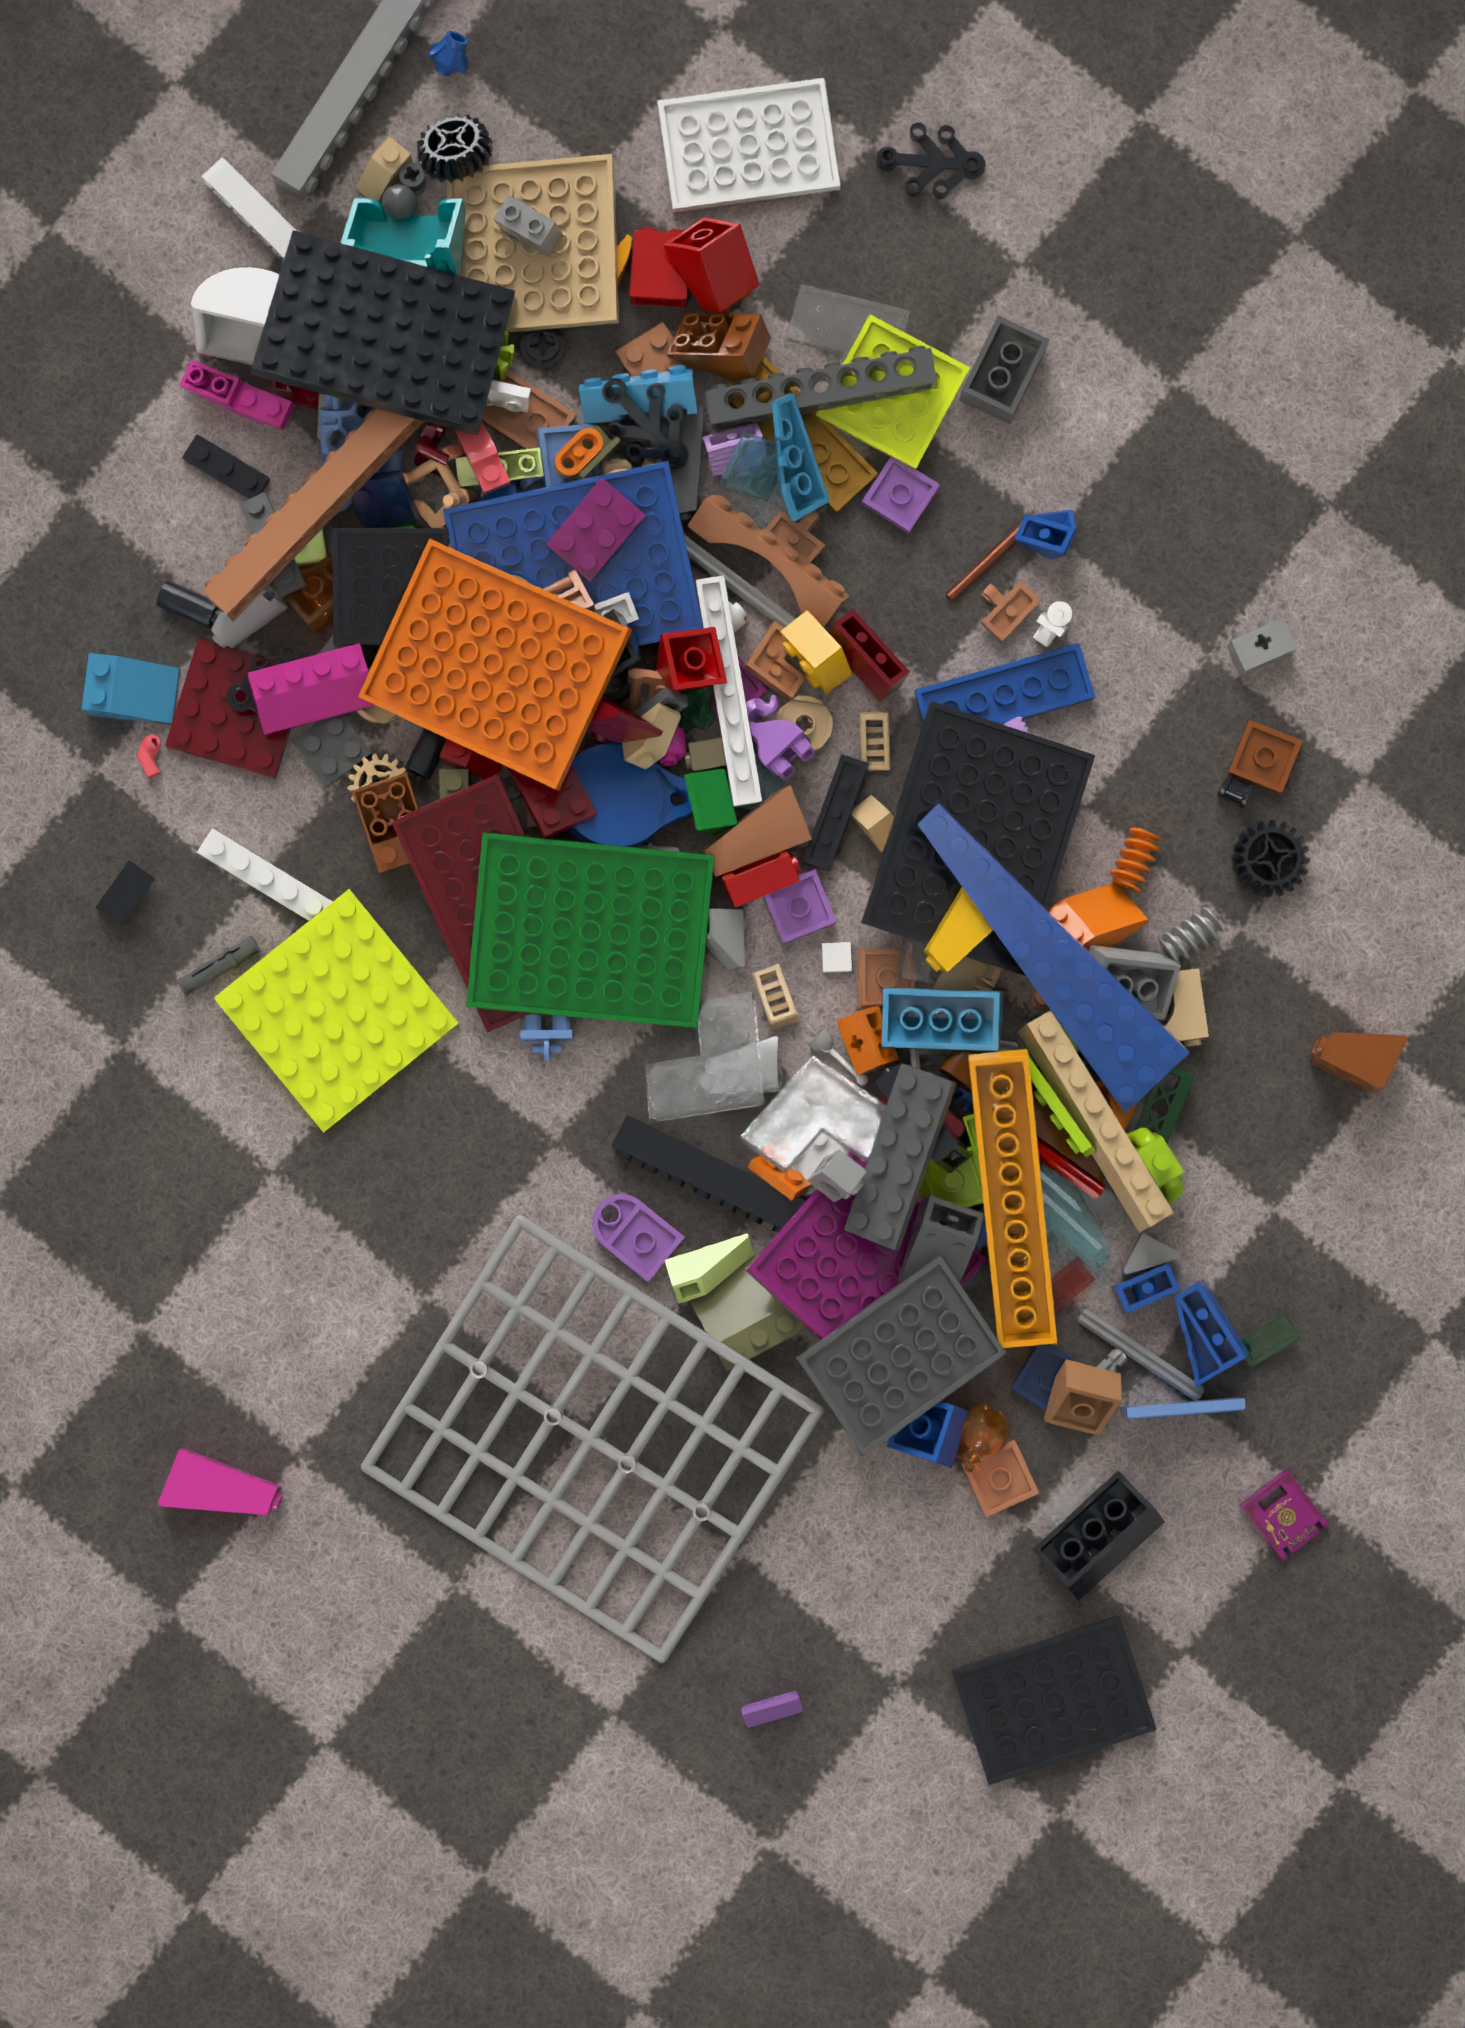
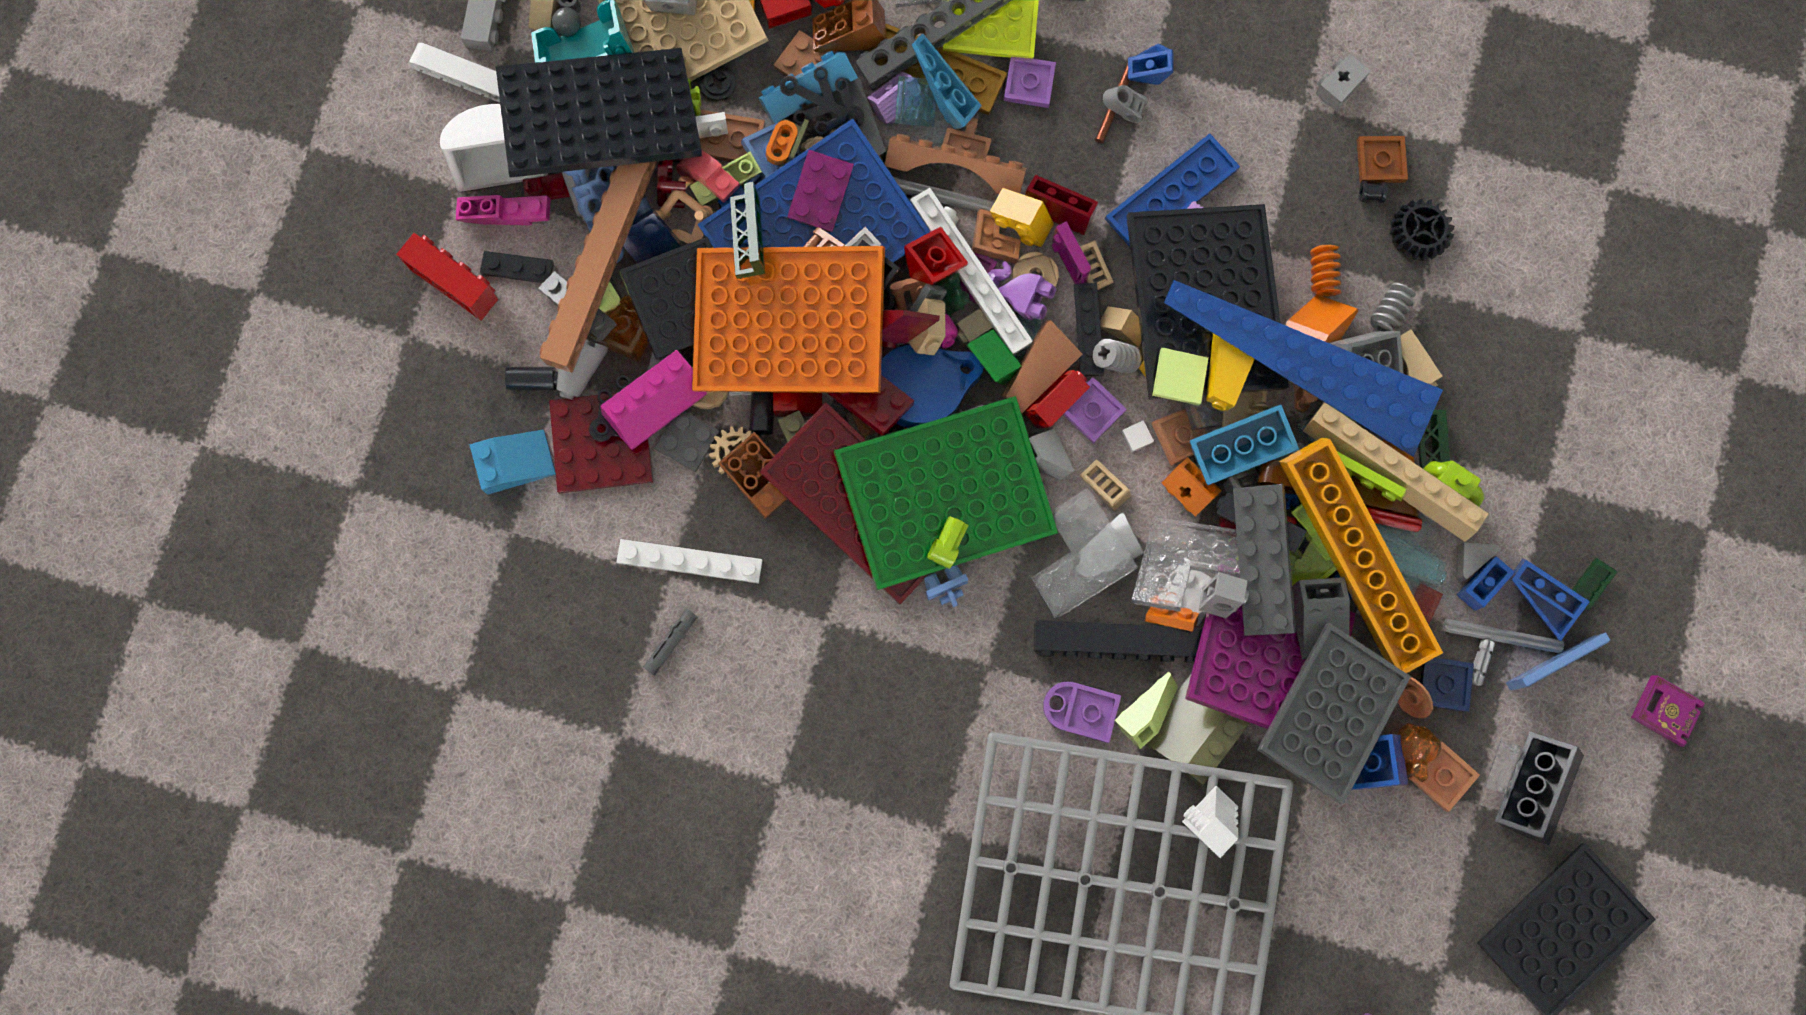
camera: 25 degrees left, 5 degrees down
(125, 892) = (574, 616): black hinge -> none
(140, 444) = (448, 276): none -> red brick
(146, 755) = (546, 504): coral arm -> none
(336, 1010) = (776, 637): neon yellow plate -> none
(495, 550) = (753, 233): none -> fence
(560, 992) = (945, 548): none -> lime piece
(709, 1413) = (1214, 821): none -> white wedge
(824, 1043) = (1158, 504): hinge -> none
(850, 700) = (1071, 253): none -> magenta container
(850, 857) = (1117, 356): none -> light grey piece
(905, 912) = (1180, 376): none -> yellowish green tile
(1001, 570) = (1125, 102): none -> light grey piece
(1004, 1379) = (1416, 700): none -> nougat dish
(1008, 610) = (1146, 131): nougat plate -> none
(1053, 622) = (1186, 125): white hips -> none
(1083, 1397) = (1481, 686): medium nougat slope -> none
(1359, 1057) = (1561, 345): dark orange slope -> none

